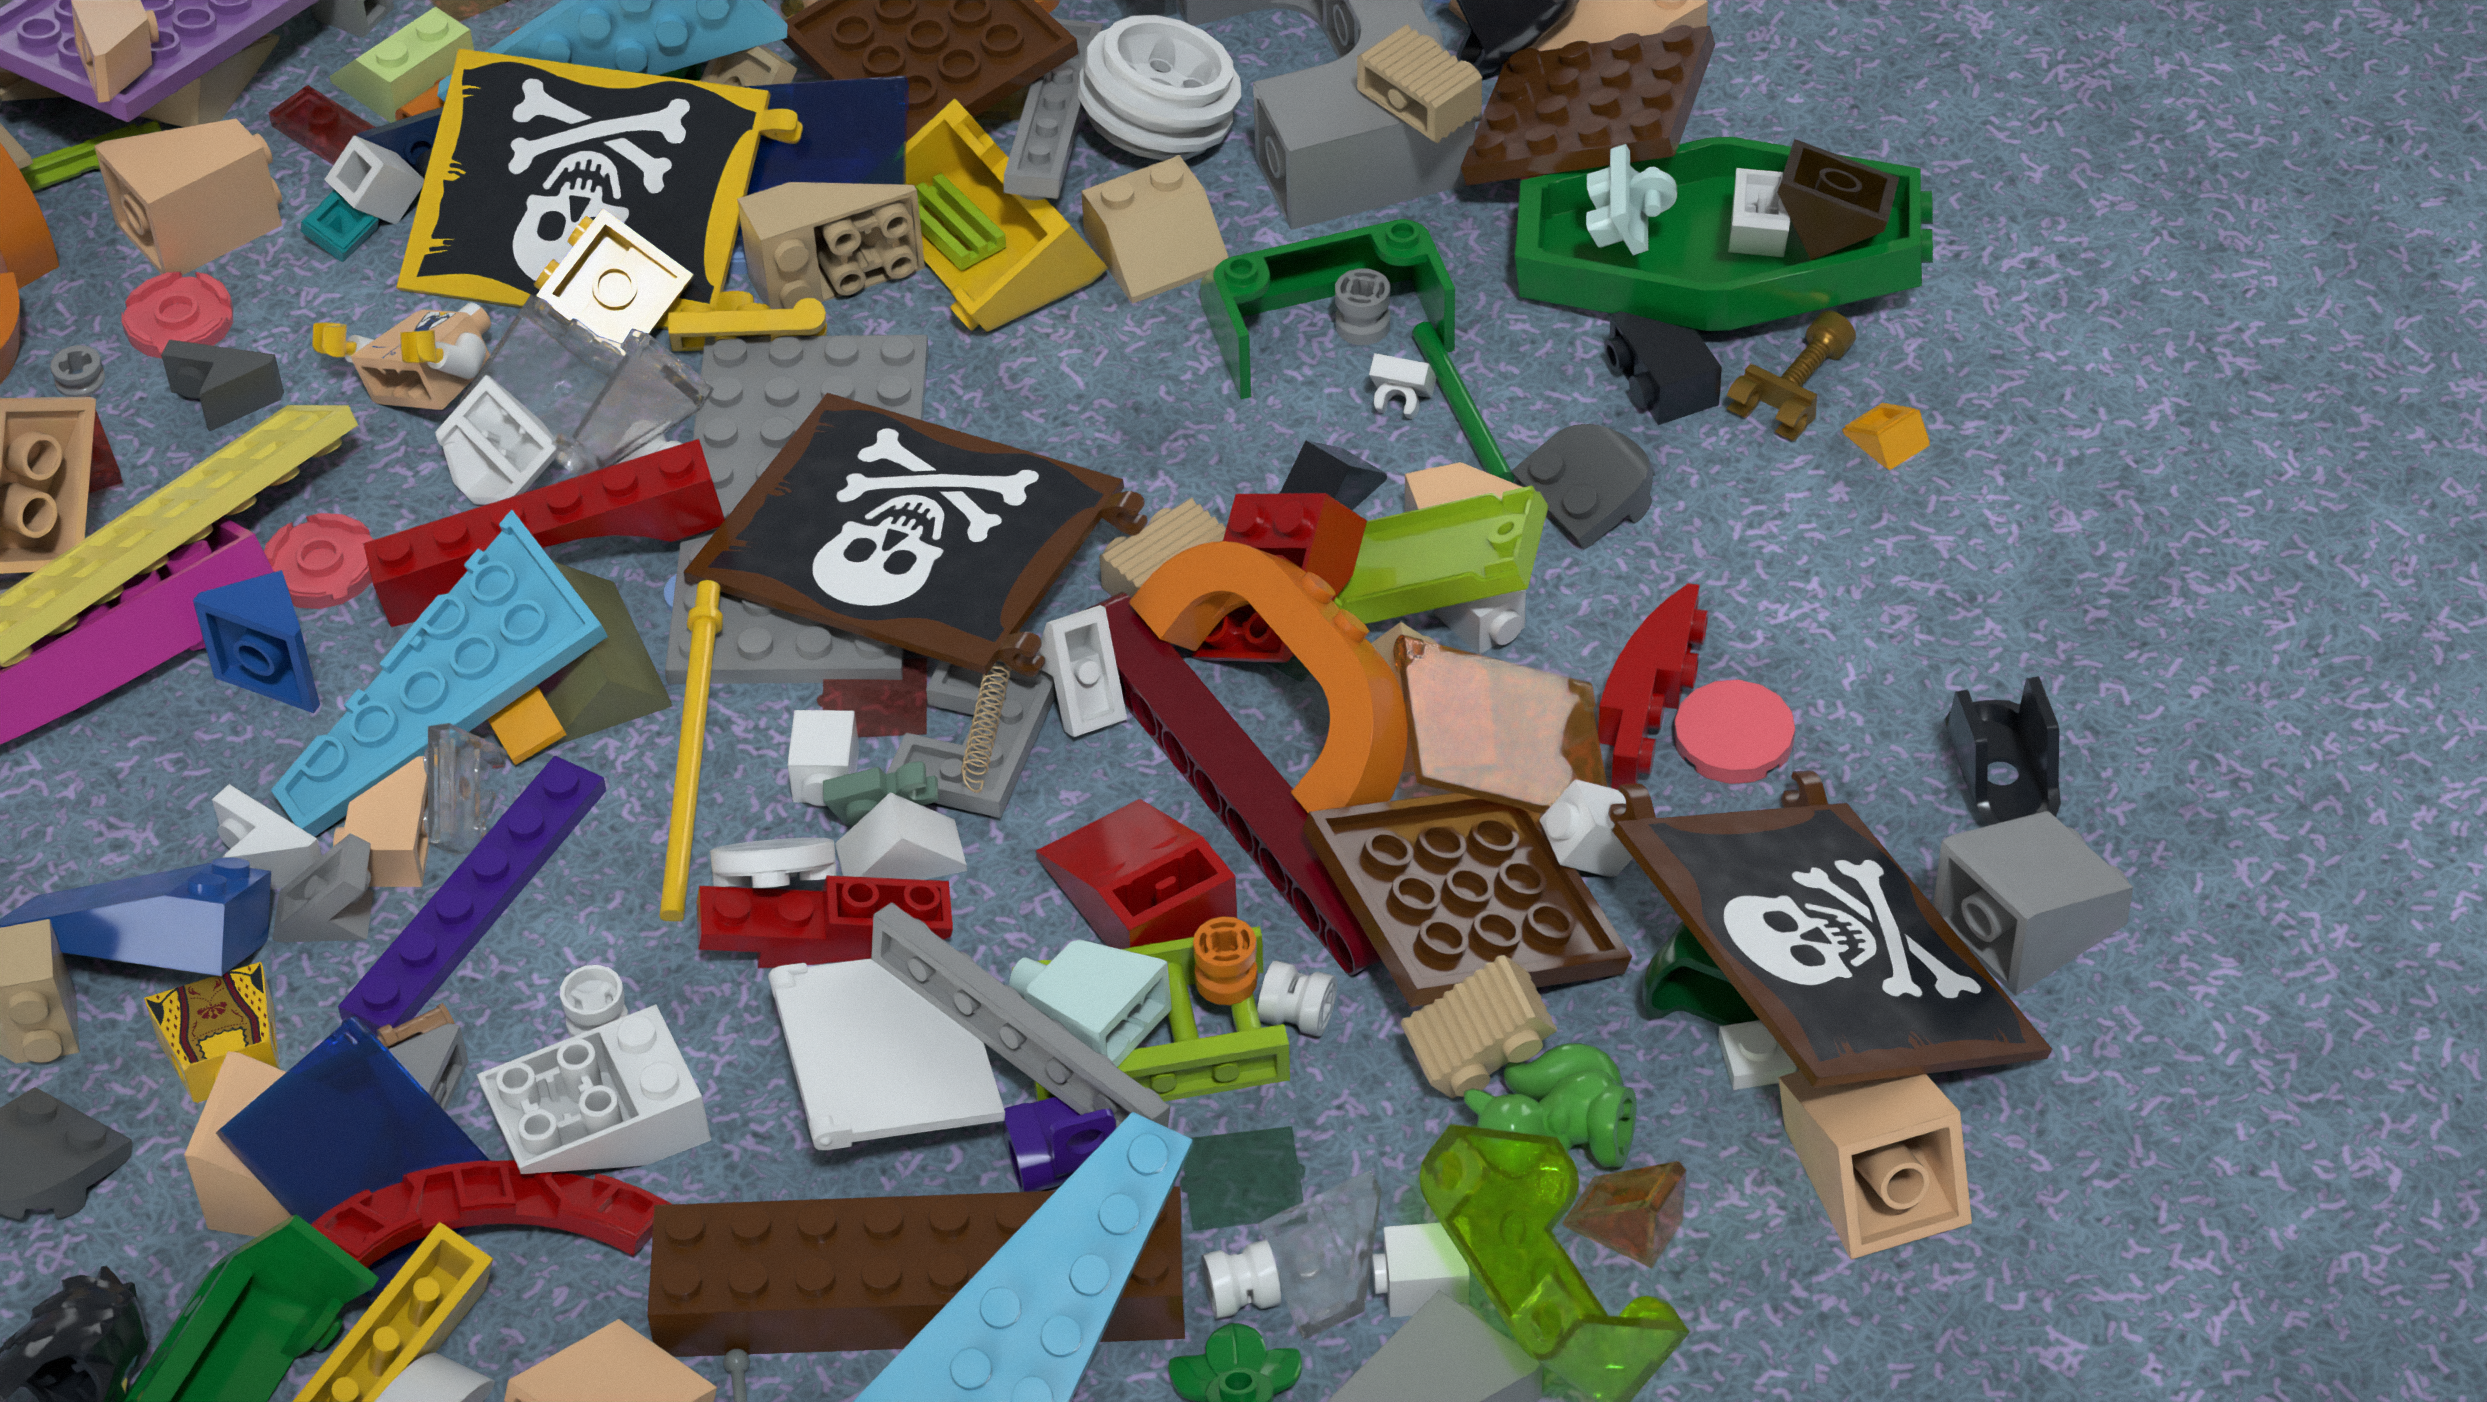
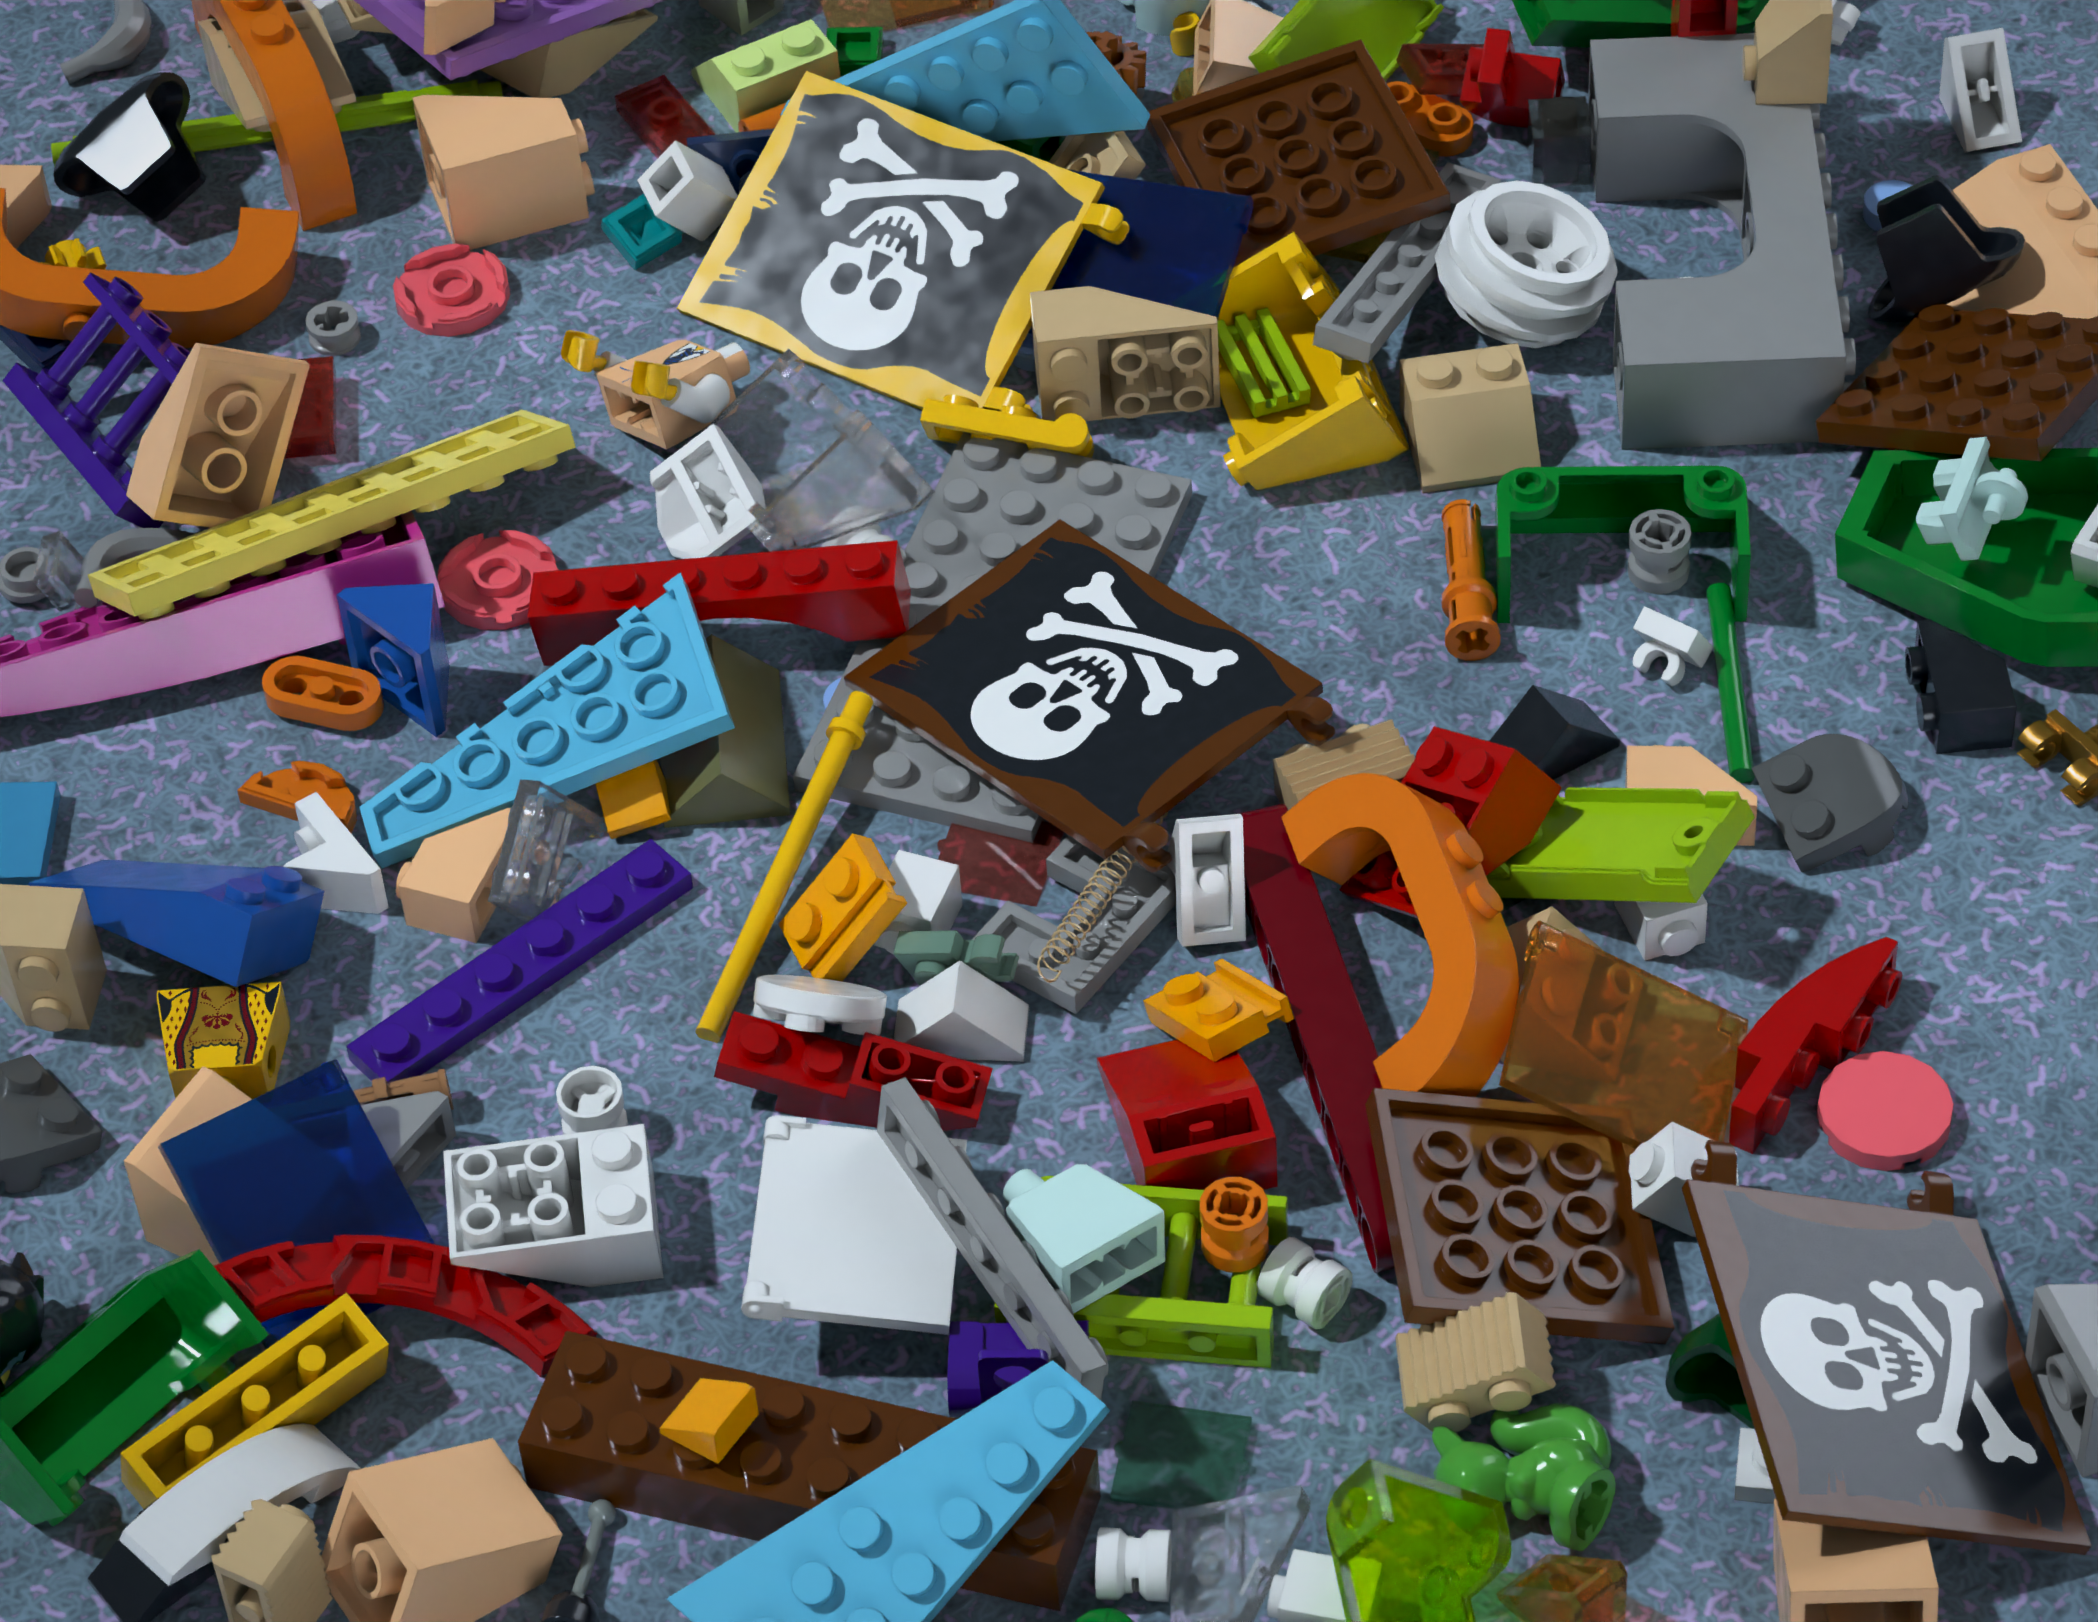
camera: 20 degrees right, 0 degrees up
(193, 791) = (285, 787): none -> orange tile
(194, 697) = (330, 695): none -> orange plate
(223, 378) = (466, 369): dark grey slope -> none
(328, 897) = (376, 933): light grey slope -> none
(484, 25) = (856, 46): none -> green tile
(612, 279) = (882, 354): plate -> none
(762, 776) = (843, 911): none -> light orange plate
(825, 1244) = (712, 1417): none -> light orange slope
(1130, 783) = (1217, 1010): none -> light orange plate
(1210, 381) = (1468, 597): none -> orange pin
(1420, 83) = (1788, 321): tan brick -> none

